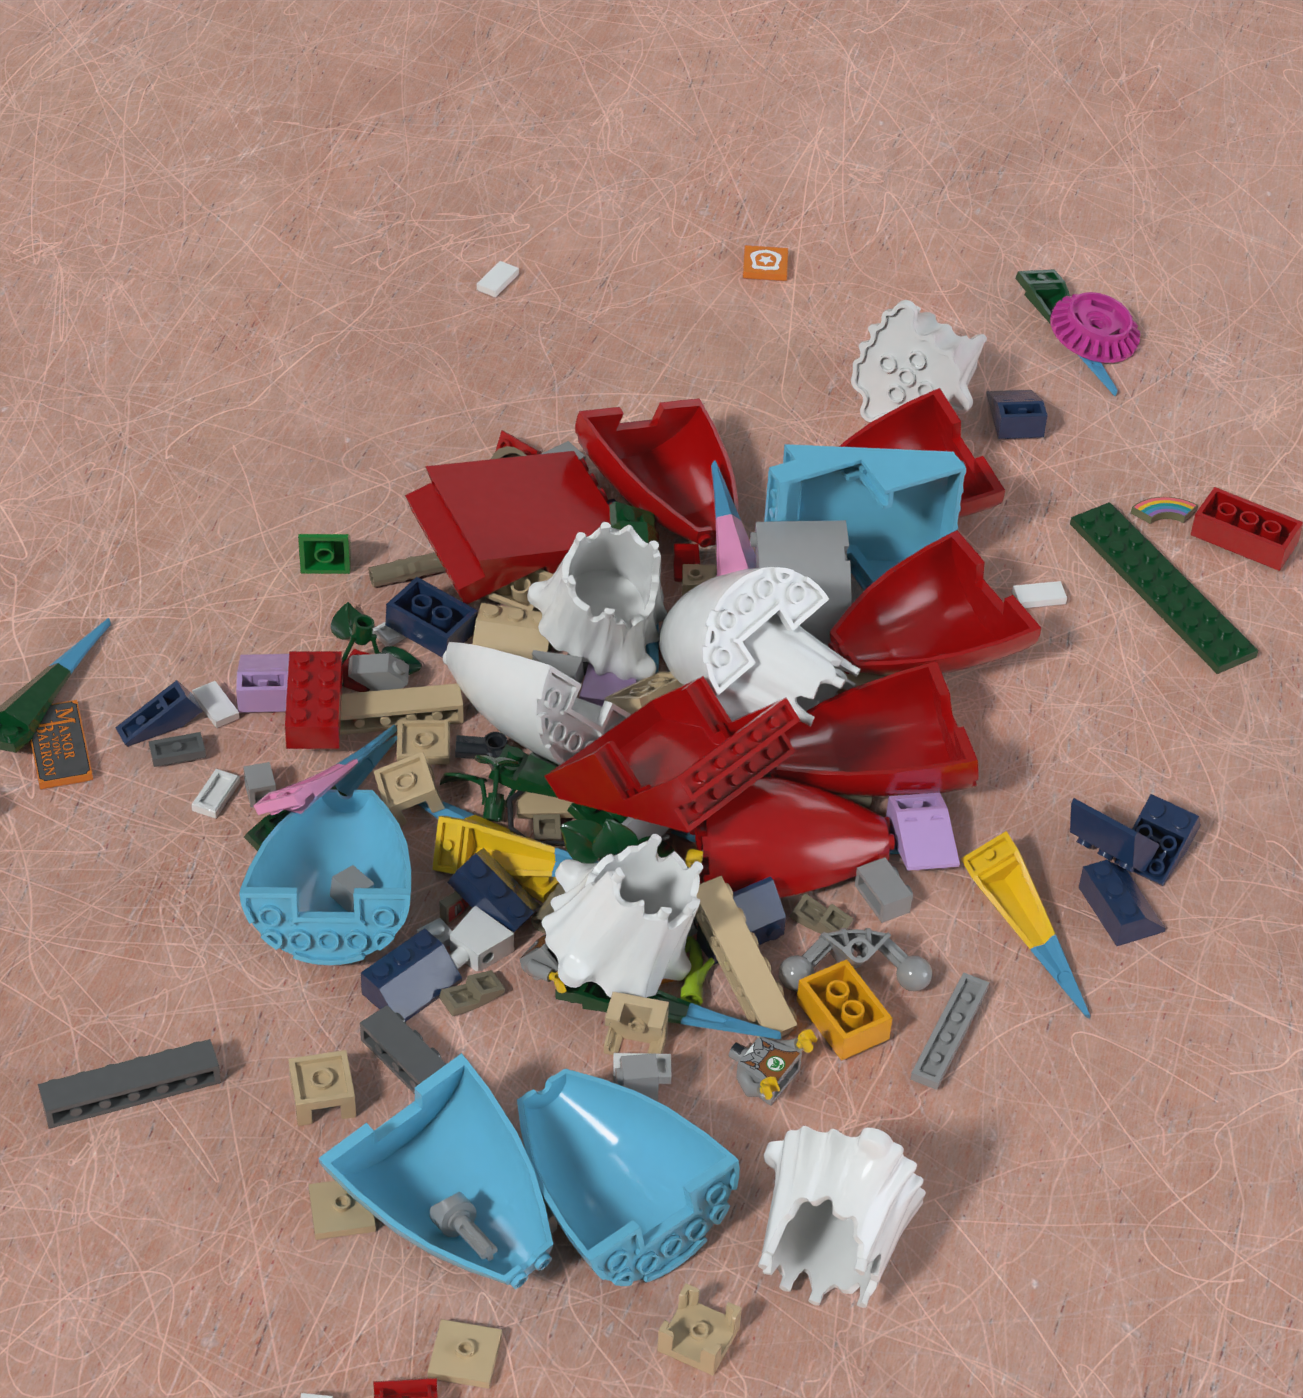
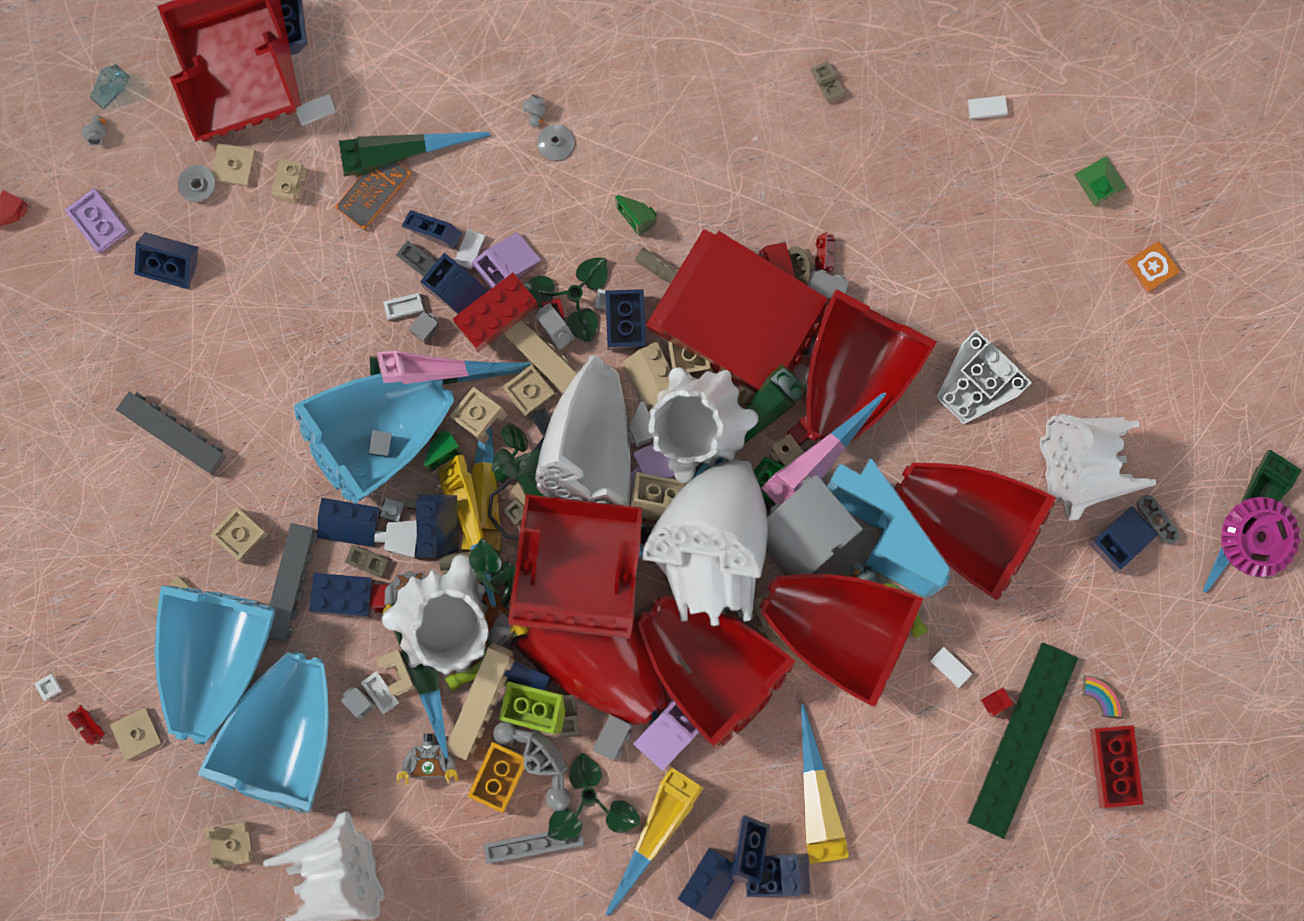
camera: 60 degrees right, 35 degrees up
(125, 564) = (535, 106): none -> light grey animal
(179, 578) = (559, 150): none -> light grey dish
(242, 732) = (452, 284): none -> dark blue slope
(345, 360) = (827, 82): none -> dark tan slope
(418, 834) = (441, 451): none -> green slope
(456, 1217) = (200, 672): light grey piece -> none
(493, 1031) = (341, 595): none -> dark blue brick
(536, 996) = (377, 599): none -> red panel
(648, 251) = (1100, 181): none -> green slope
(762, 416) = (980, 379): none -> white wedge
(792, 921) = (533, 708): none -> lime slope
(980, 937) = (585, 773): none -> dark green plant
(1037, 382) = (1154, 505): none -> dark grey beam
(1106, 578) = (996, 702): none -> red panel
(1123, 774) = (823, 826): none -> yellow plate

